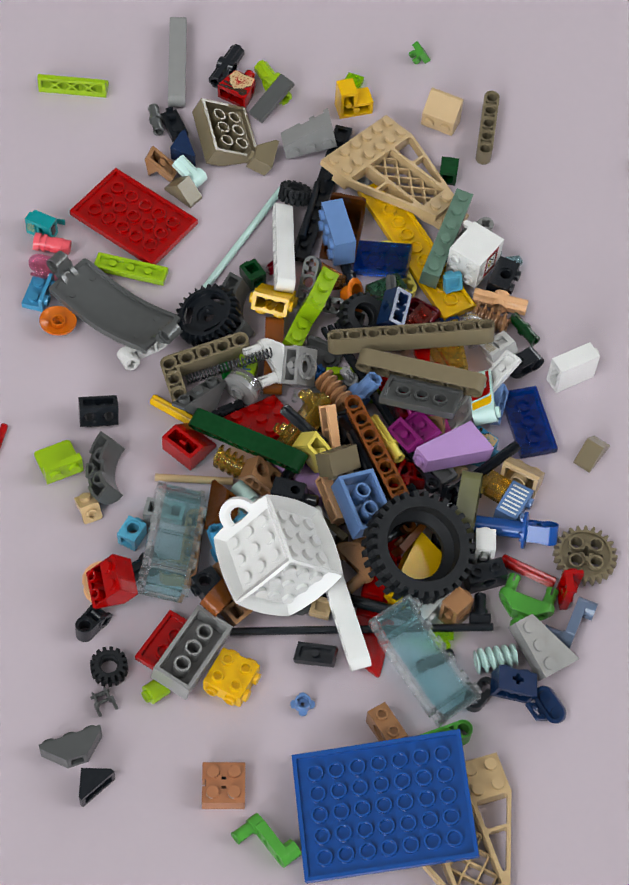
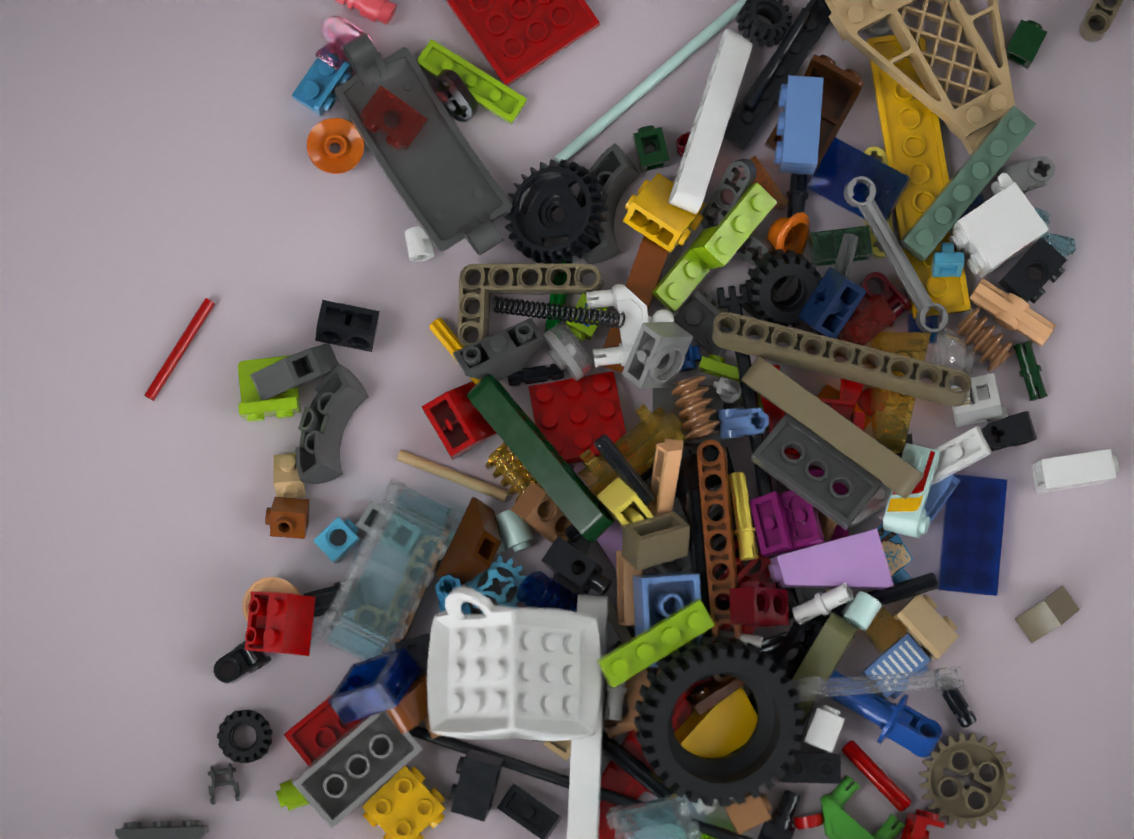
camera: 25 degrees right, 25 degrees up
(71, 441) = (294, 371): none -> dark grey slope
(85, 284) = (384, 103): none -> clear red brick
(95, 527) = (288, 517): none -> dark orange brick
(126, 272) = (455, 95): none -> black beam
(187, 597) = (372, 685): none -> clear blue window
(274, 646) = (476, 784): none -> black brick
(345, 558) = (614, 701): none -> white pin
(360, 512) = (655, 643): none -> lime plate
(416, 477) = (758, 605): none -> dark red brick
(419, 283) = (895, 254): none -> light grey piece
(455, 468) = (822, 603): none -> white pin
(481, 462) = (861, 610): none -> light aqua piece
(497, 606) = (809, 820): none -> red tile
(546, 497) = (941, 679): none -> clear piece
(557, 514) = (959, 706): none -> black axle

